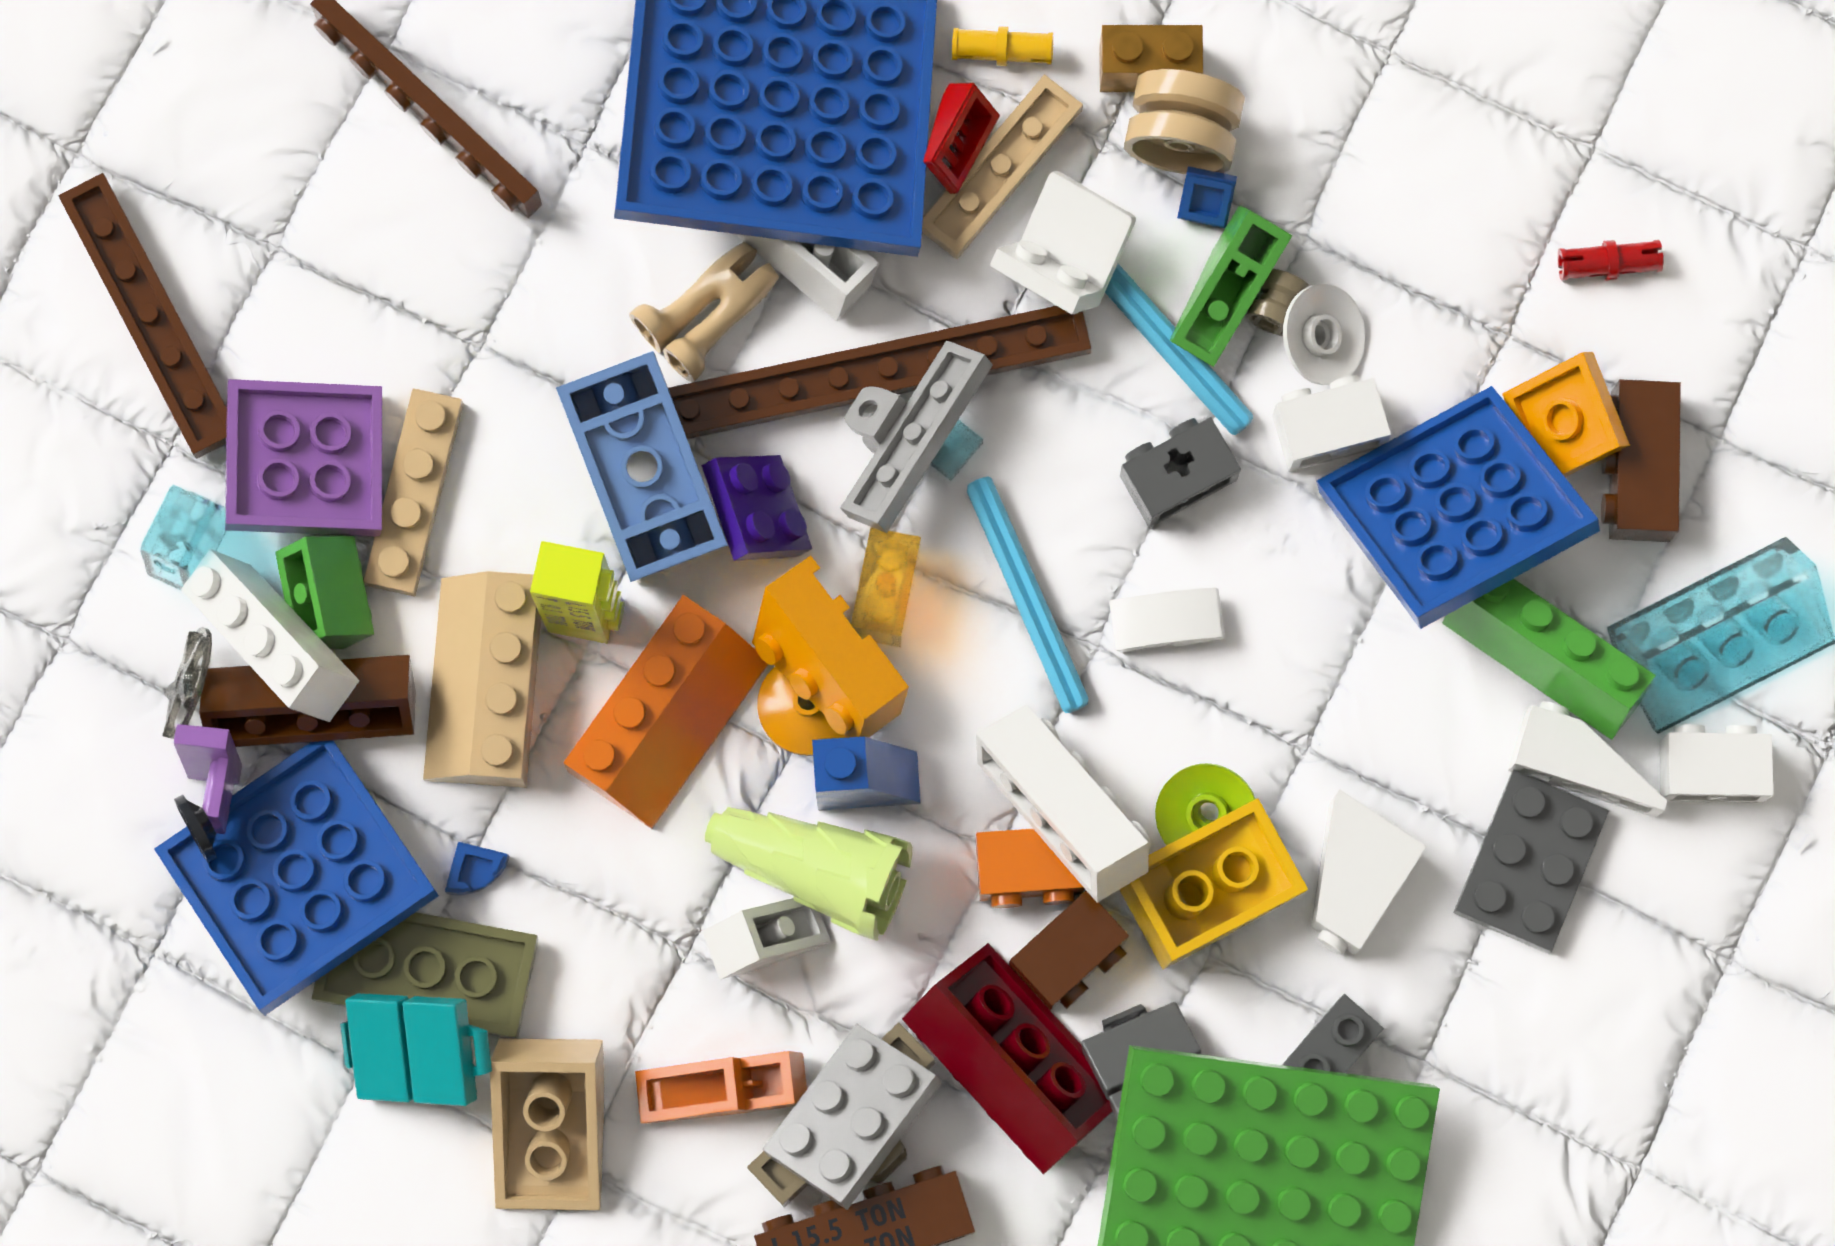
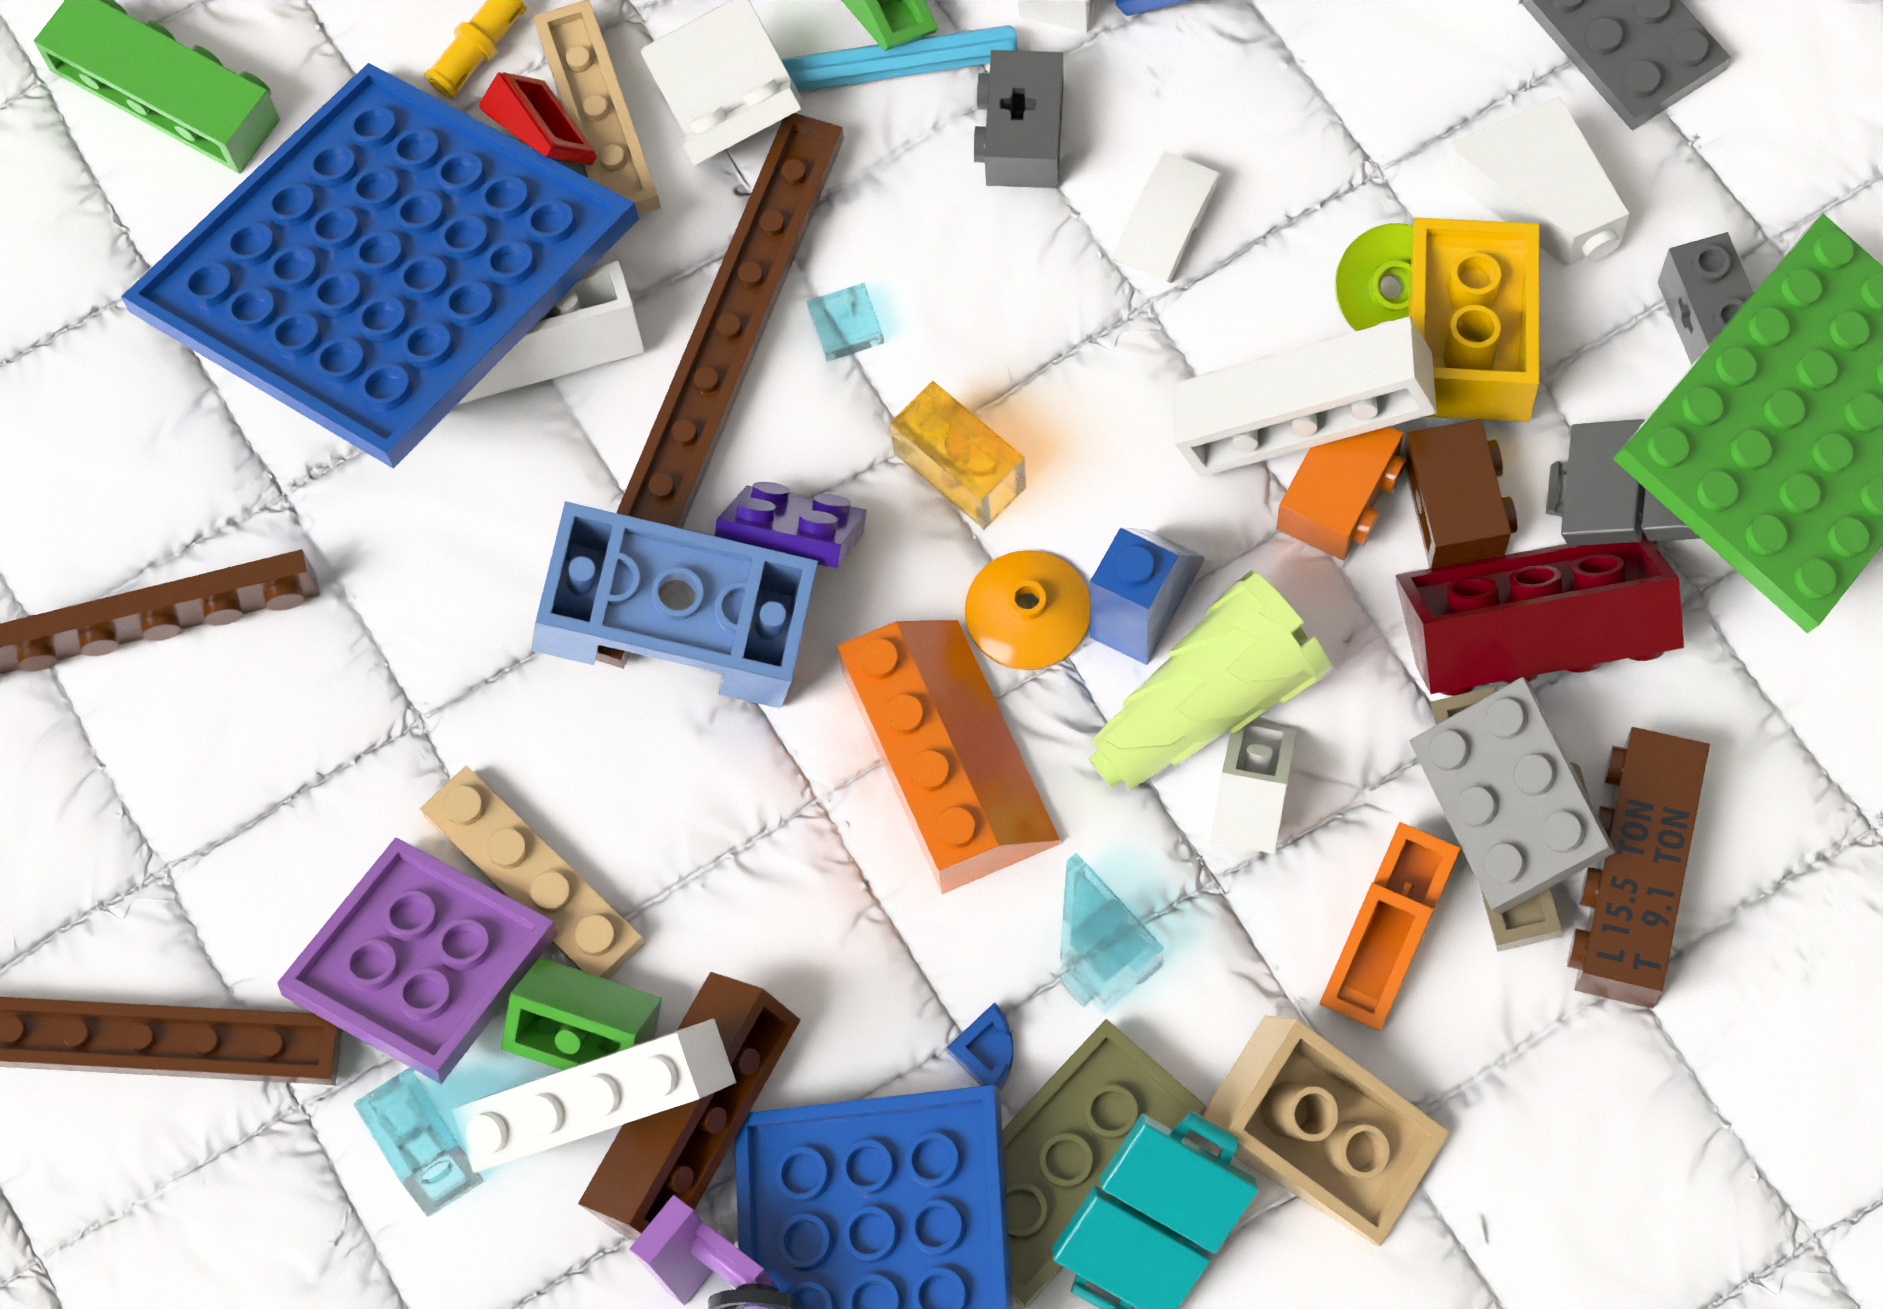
camera: 50 degrees left, 10 degrees down
(189, 679) = (584, 1224): clear smoke wheel -> none
(483, 680) = (787, 915): tan slope -> none
(576, 592) = (768, 733): neon yellow brick -> none
(590, 898) = (1102, 942): none -> clear light blue slope
(719, 282) = (525, 434): tan piece -> none
(824, 655) = (995, 542): light orange wedge -> none
(909, 433) = (817, 334): light grey plate -> none
(1027, 594) = (1053, 332): medium azure axle -> none

